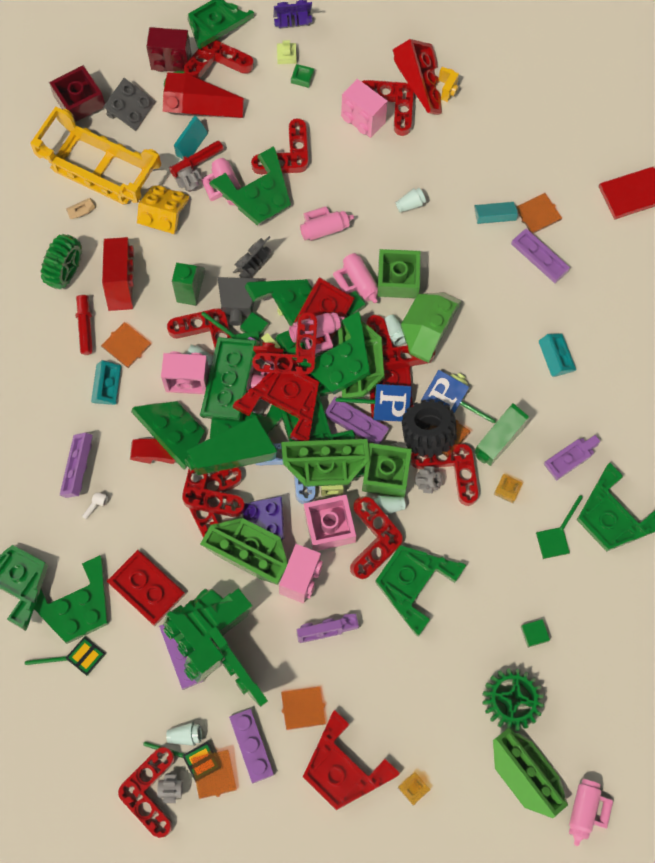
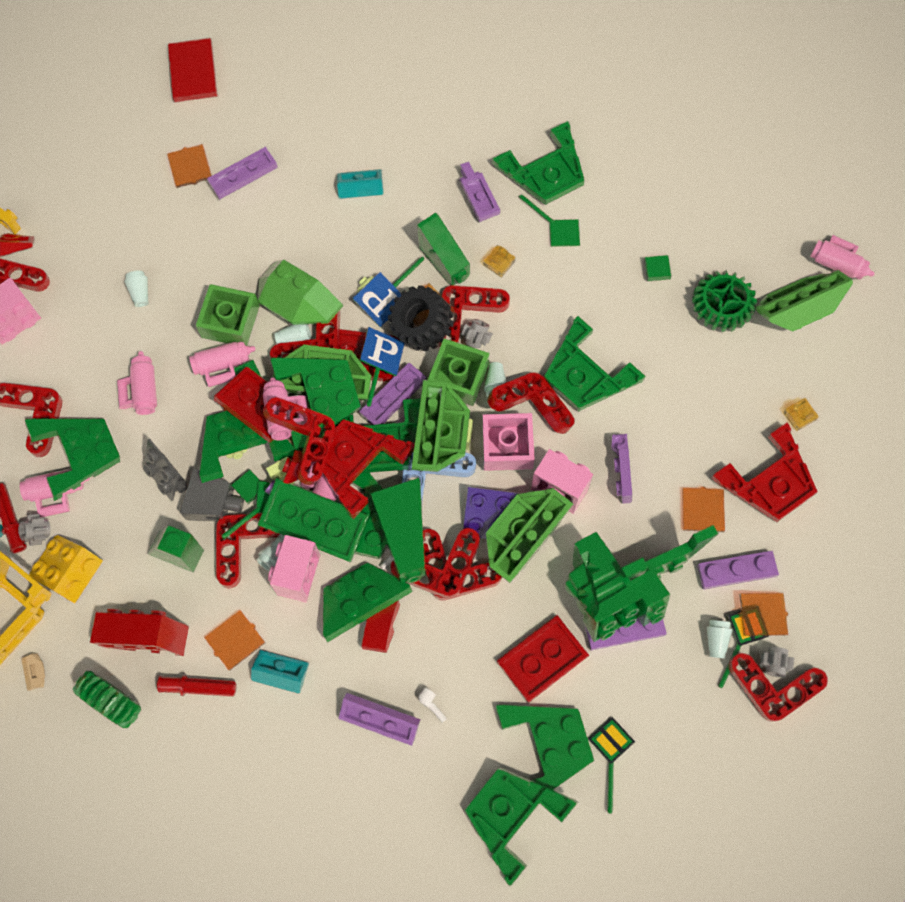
camera: 75 degrees left, 0 degrees up
(496, 212) = (177, 206): teal slope -> none

